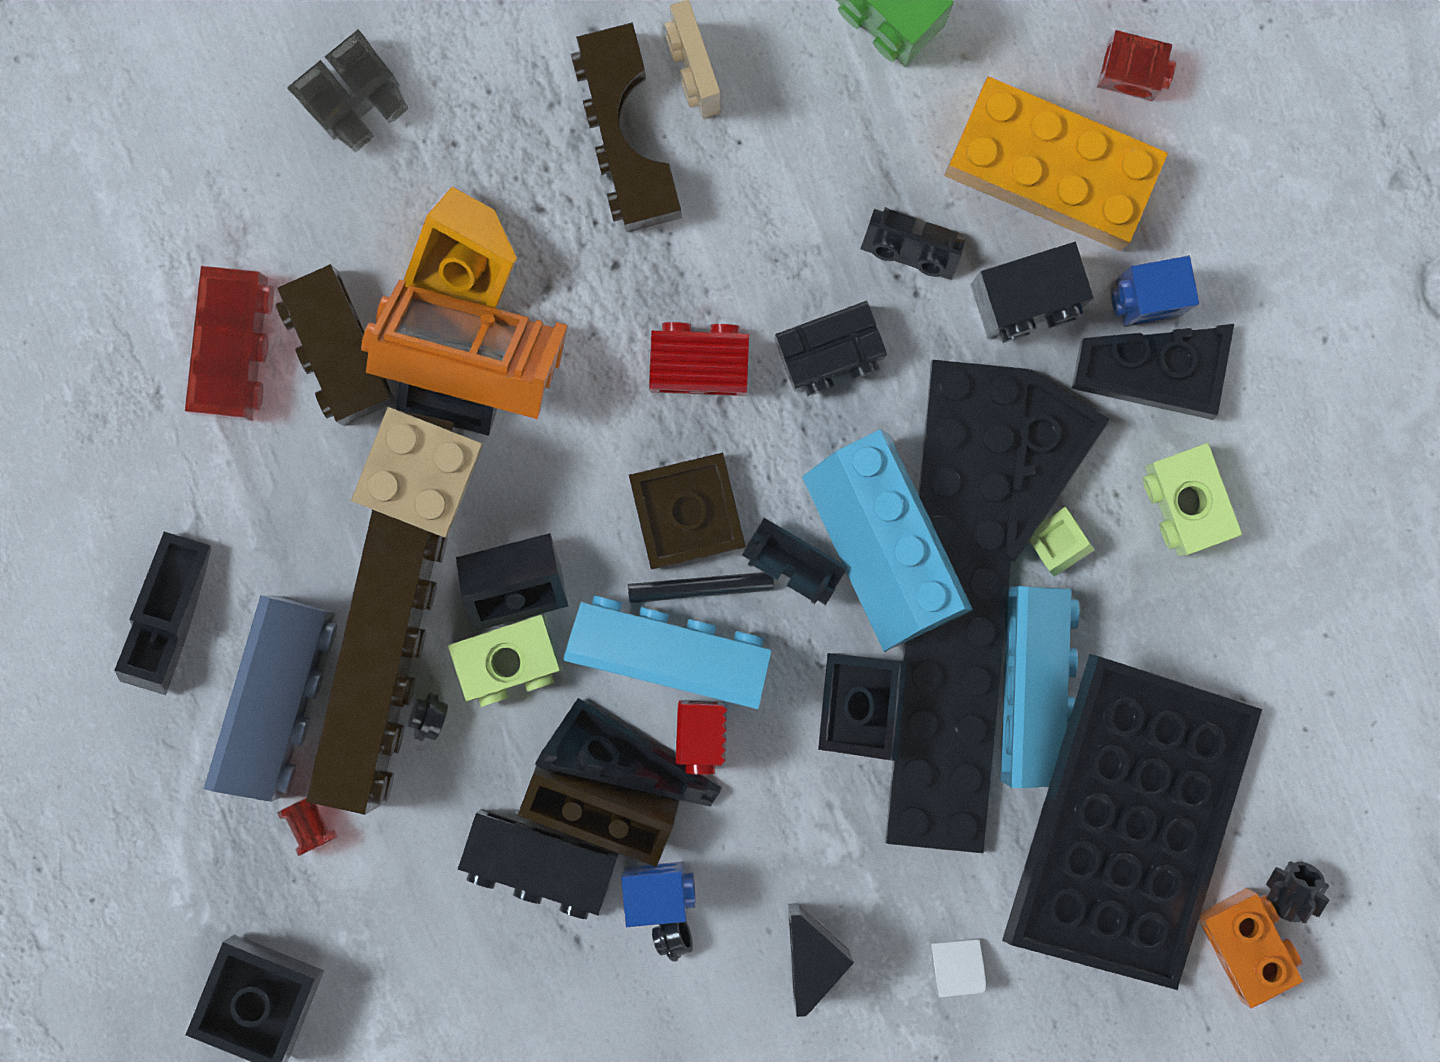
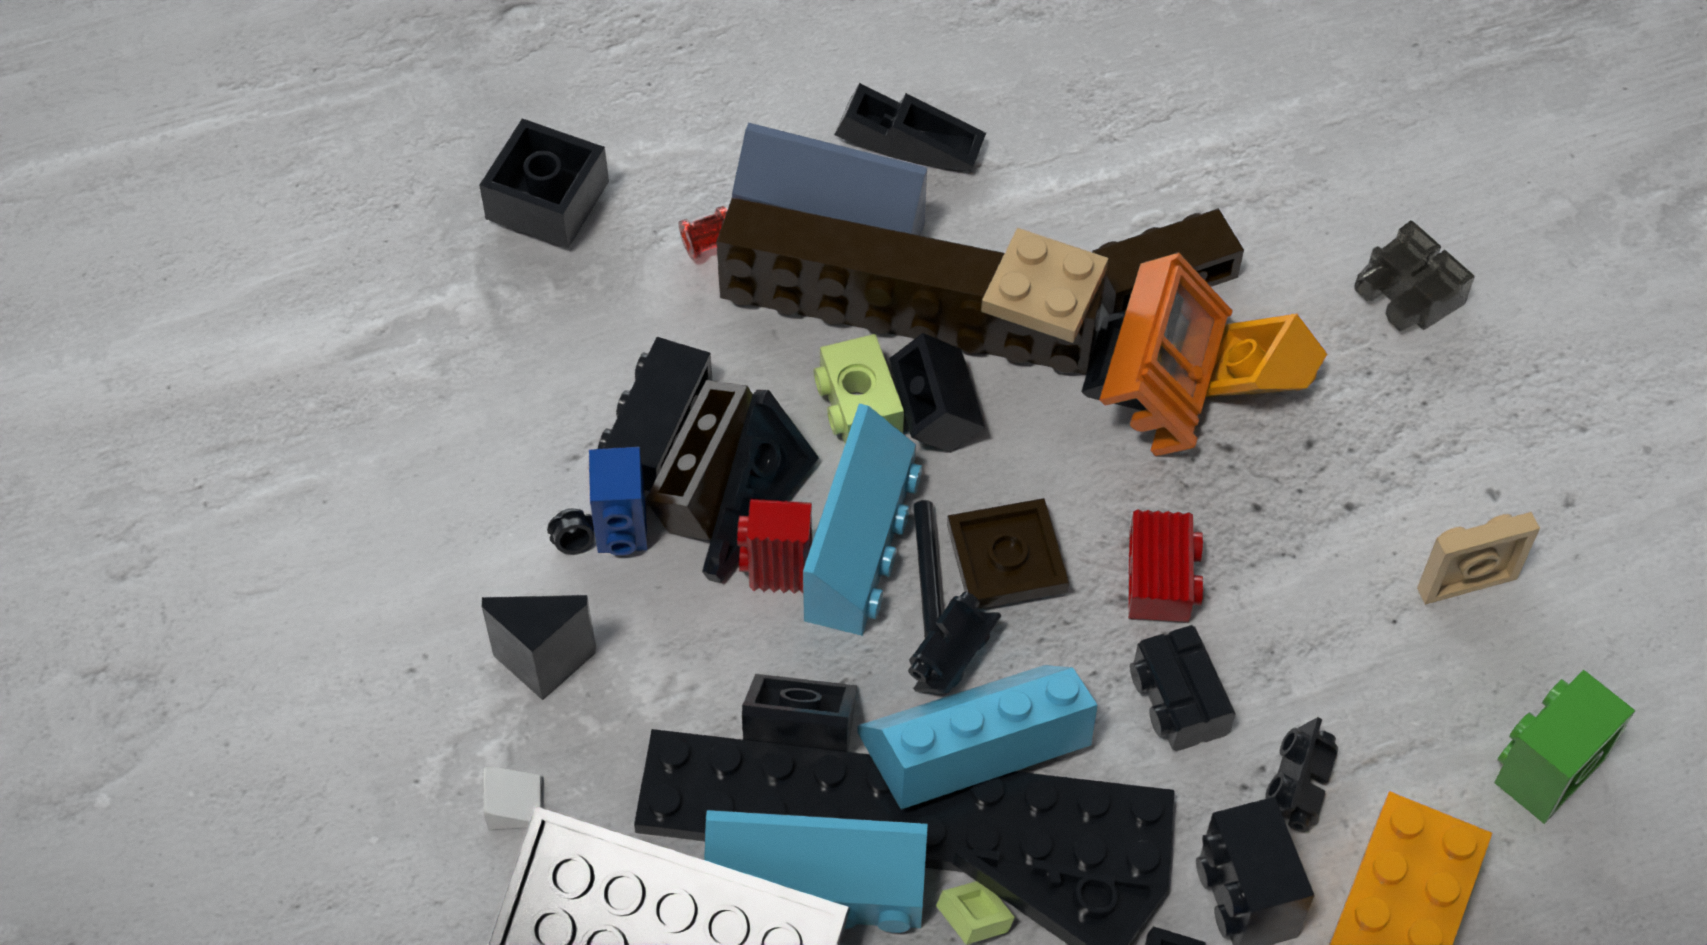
camera: 90 degrees right, 30 degrees down
(228, 343) = (1162, 179): clear red brick -> none
(428, 717) = (804, 329): black plate -> none
(613, 69) = (1450, 494): dark brown arch -> none

